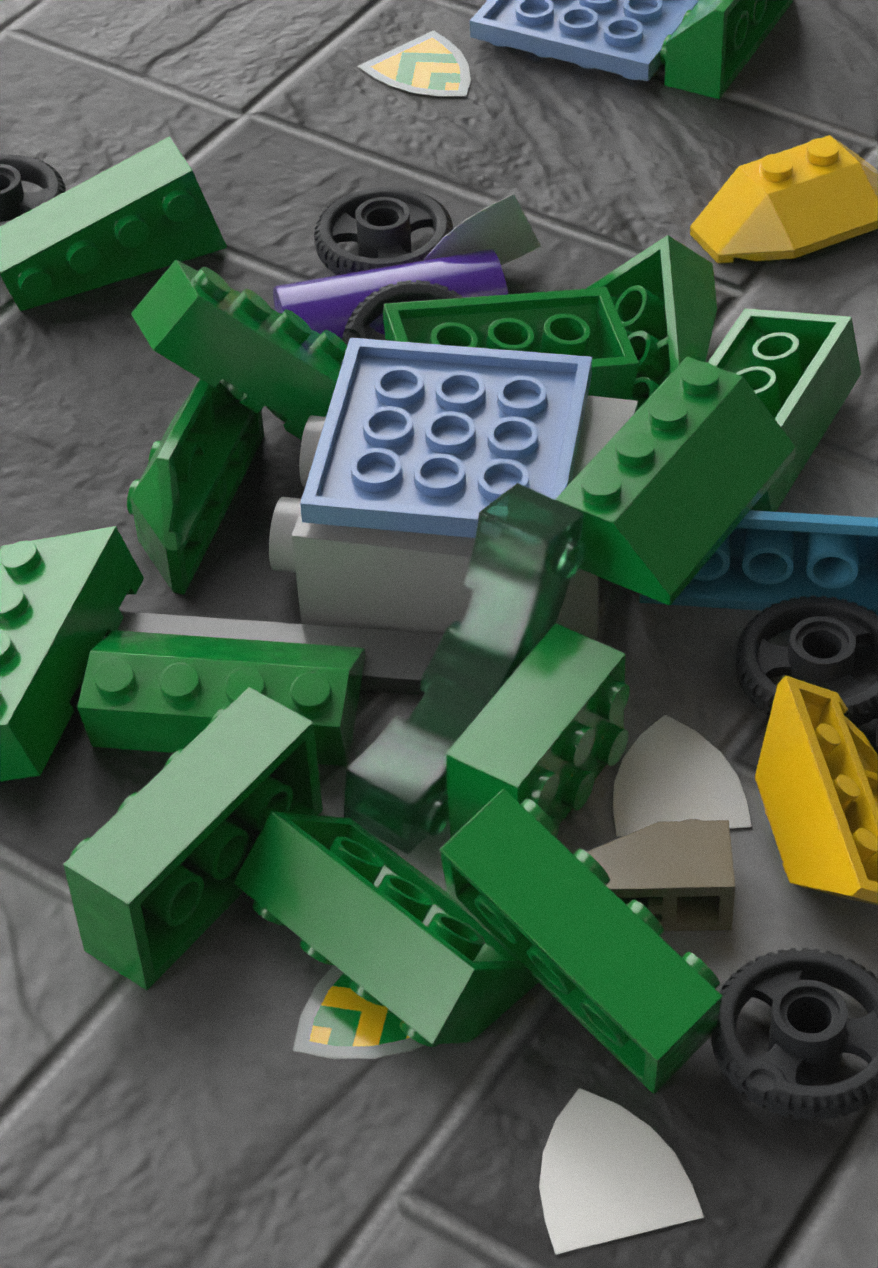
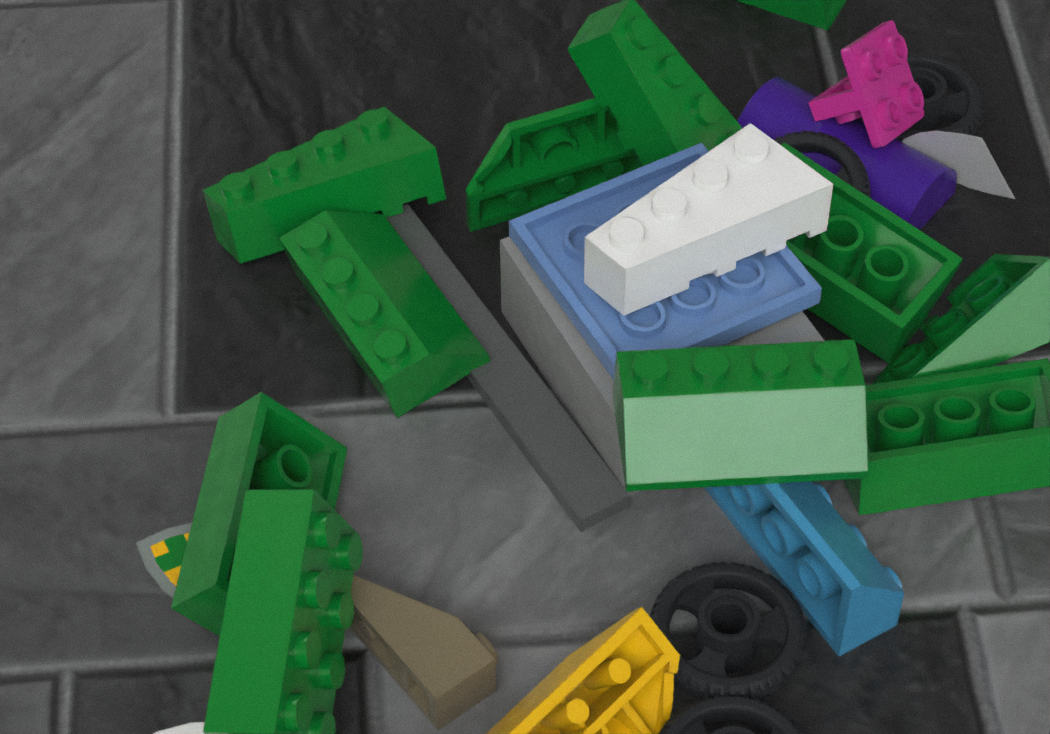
camera: 50 degrees right, 5 degrees up
(178, 843) = (193, 366): green brick -> none
(374, 230) = (876, 87): none -> dark pink bracket
(468, 357) = (704, 219): none -> white wedge
(519, 578) = (493, 428): clear green brick -> none
(543, 731) = (466, 505): green brick -> none
(676, 777) = (543, 615): white sticker -> none

